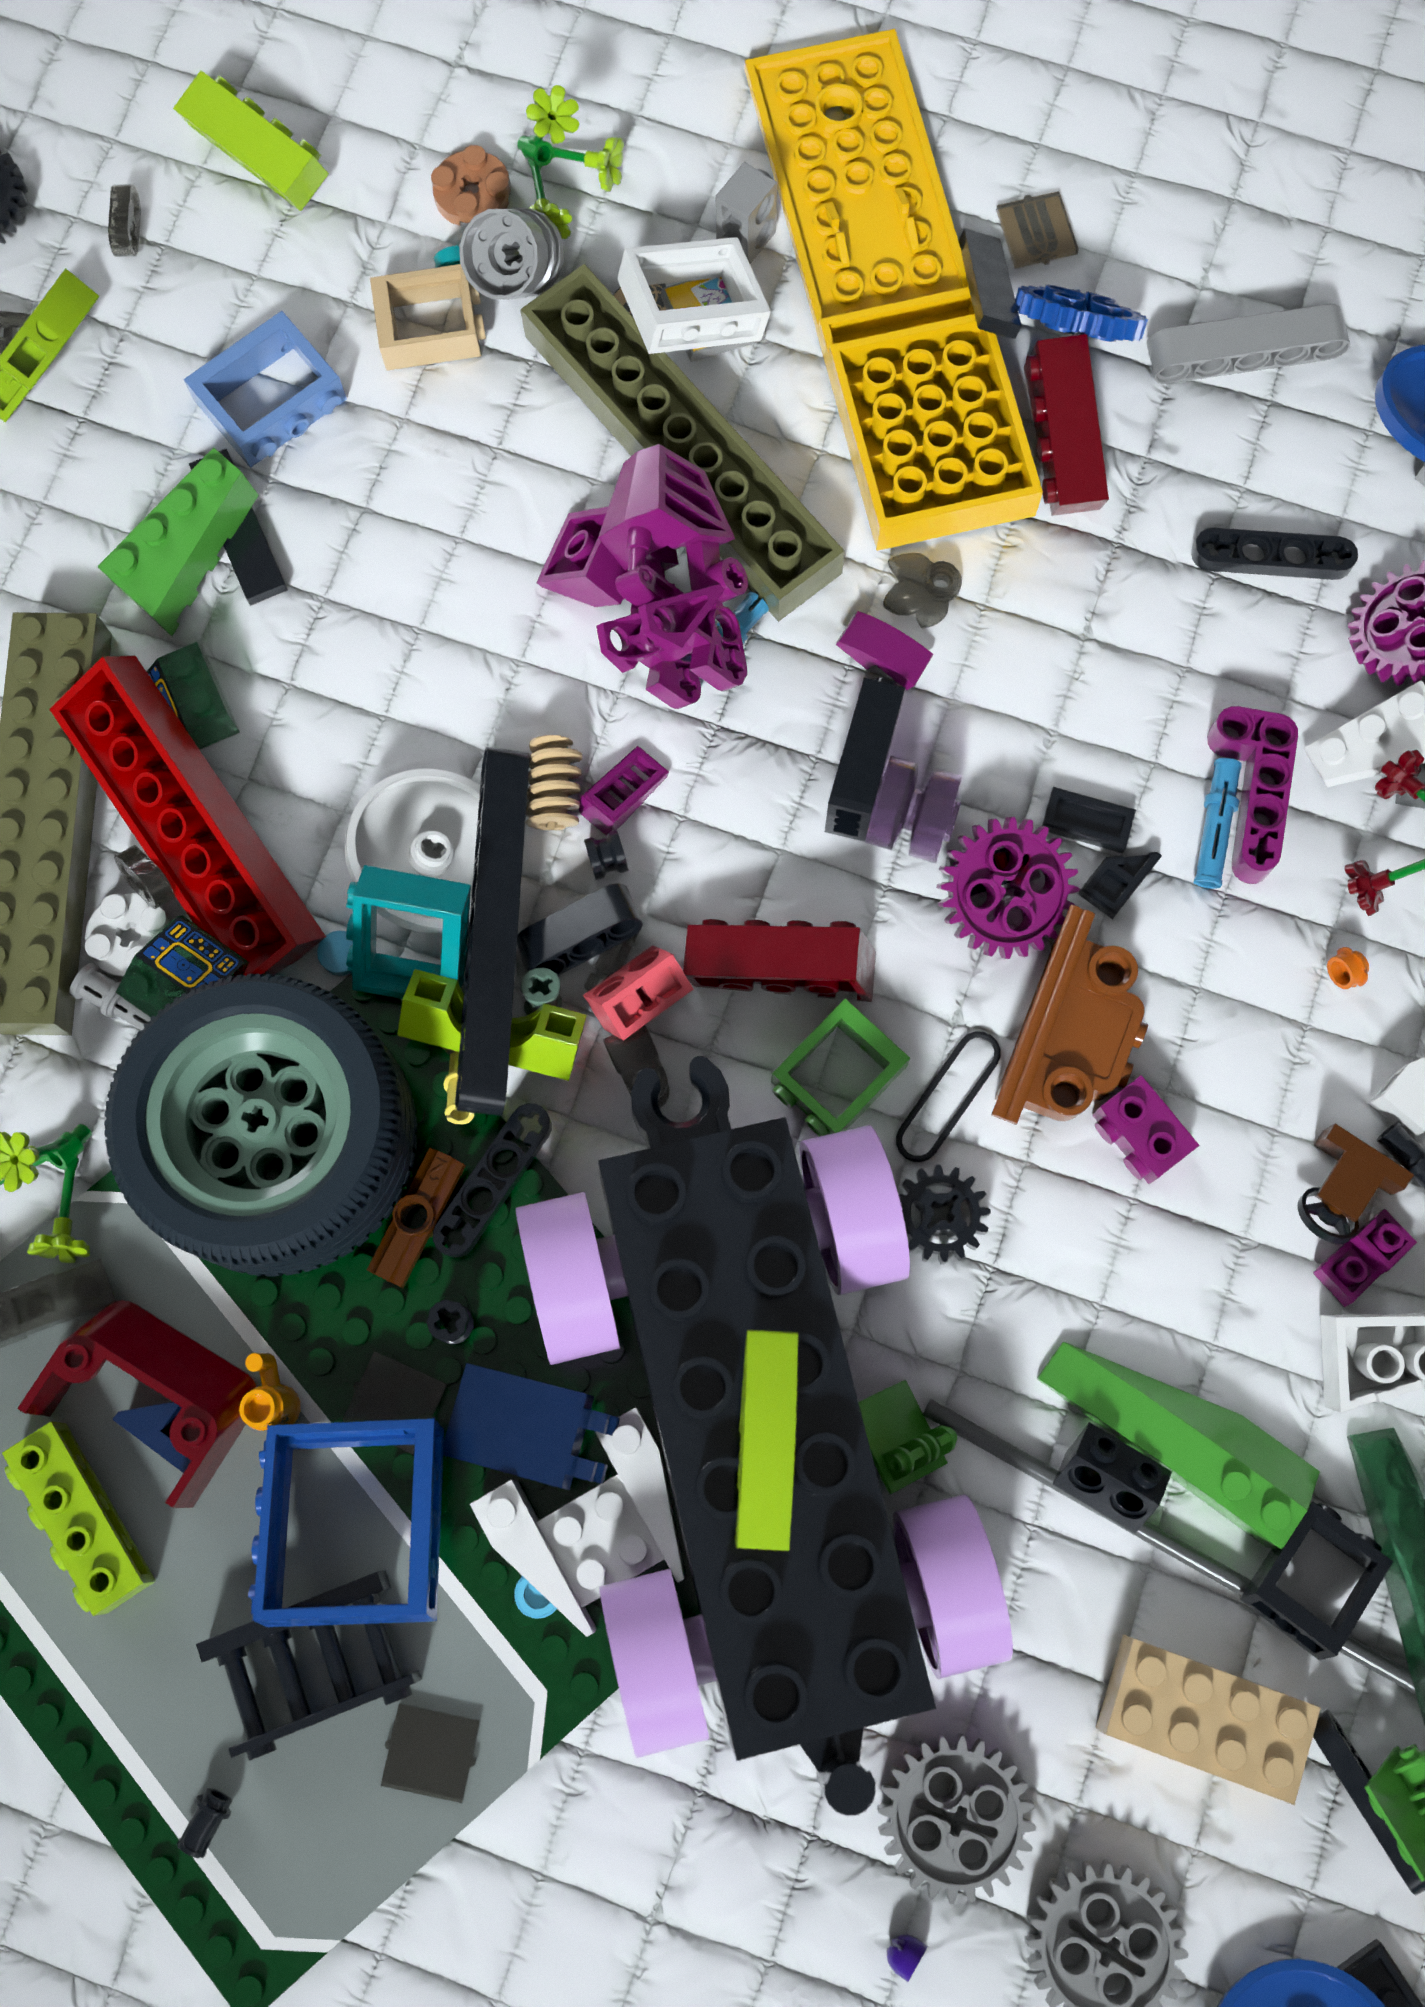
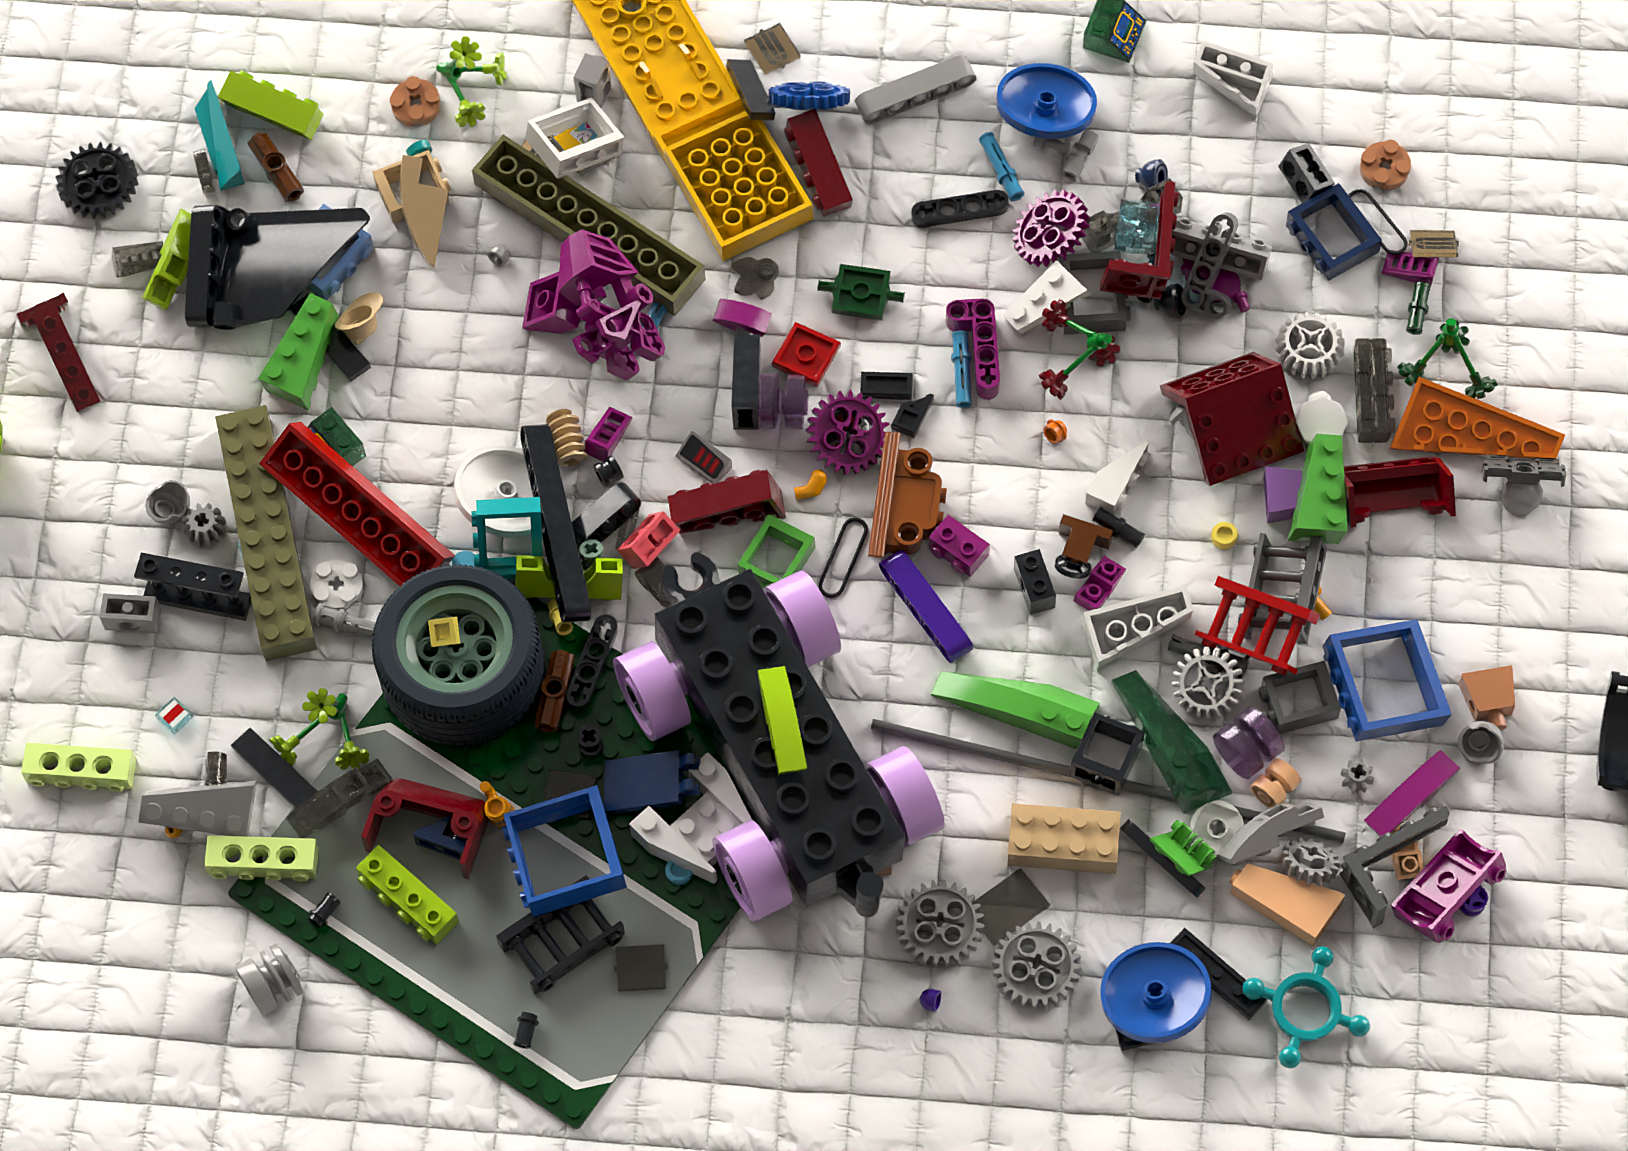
camera: 15 degrees left, 10 degrees down
(144, 877) = (338, 547): clear smoke beam -> none
(152, 379) = (263, 265): none -> black panel
(161, 178) = (218, 140): none -> teal wedge
(174, 964) = (372, 590): slope -> none
(231, 238) = (281, 177): none -> reddish brown piece
(237, 1094) = (444, 631): none -> light yellow tile
(287, 508) = (360, 317): none -> tan piece
(427, 351) = (422, 208): none -> tan slope
(492, 255) = (445, 144): light grey wheel -> none
(531, 457) = (499, 255): none -> light grey hinge
(765, 871) = (704, 458): none -> slope
(901, 1437) = (867, 743): bright green hinge -> none
(930, 964) = (814, 486): none -> light orange arm
(958, 1228) = (859, 628): black gear -> none
(971, 736) = (806, 354): none -> red plate
(1066, 1223) = (926, 606): none -> dark purple beam
(1083, 1809) = (1009, 905): none -> clear smoke piece
(1084, 653) = (861, 291): none -> dark green plate
(1112, 1478) = (981, 732): black brick -> none
(1259, 1228) = (1034, 581): none -> black brick
(1361, 515) = (1005, 173): none -> dark azure pin

